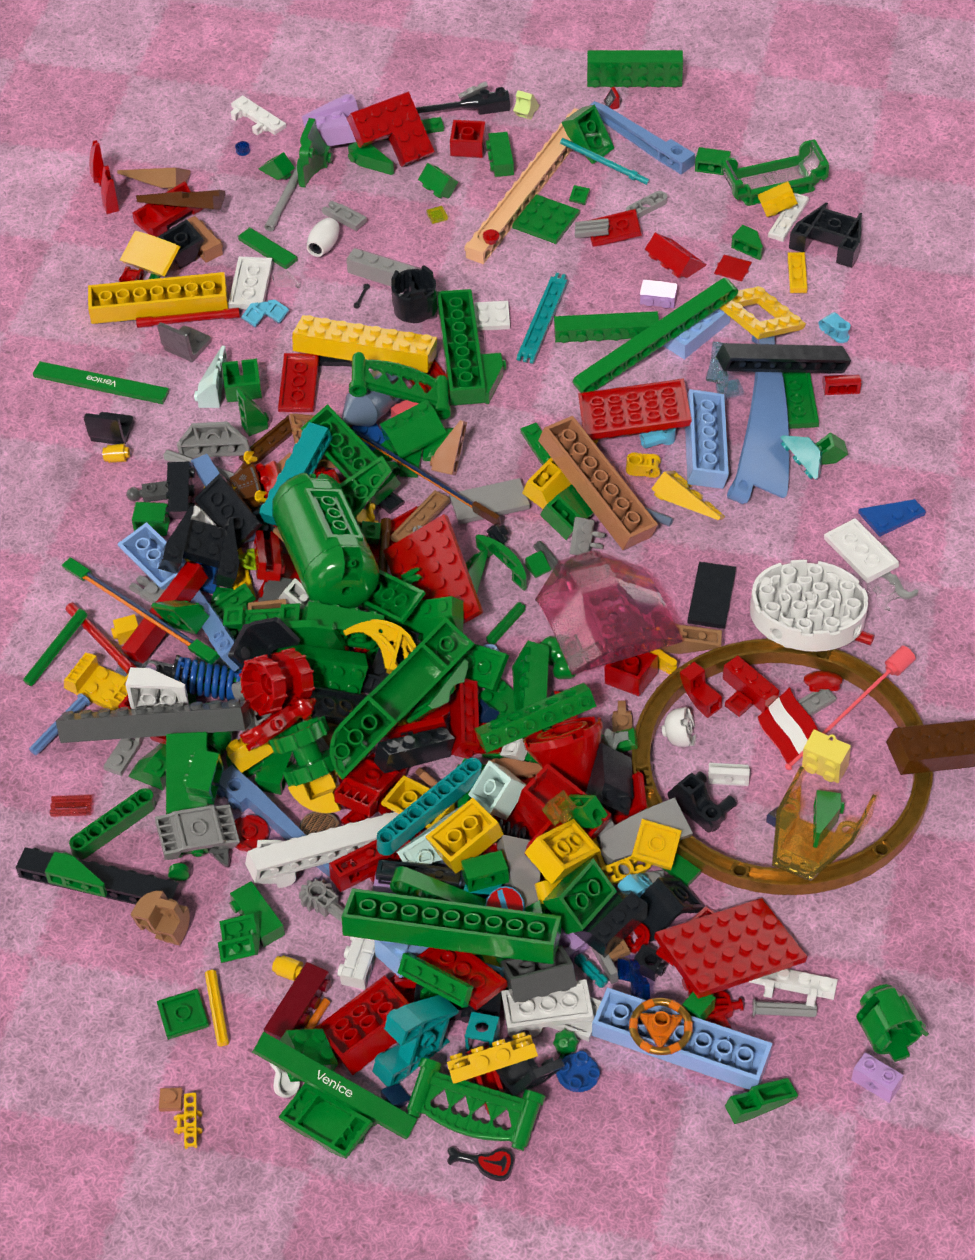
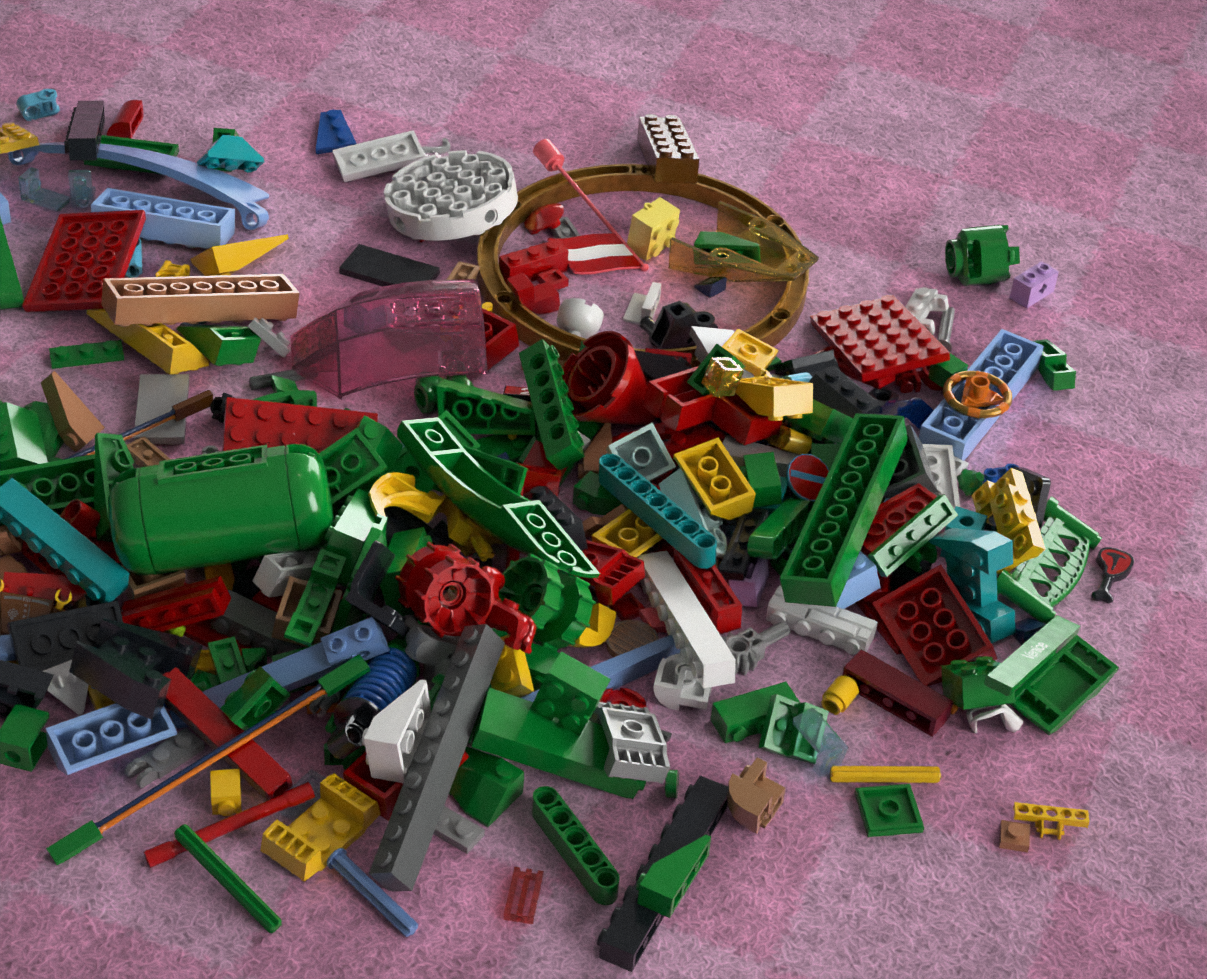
camera: 85 degrees left, 10 degrees down
(226, 952) = (822, 738): none -> clear light blue bracket

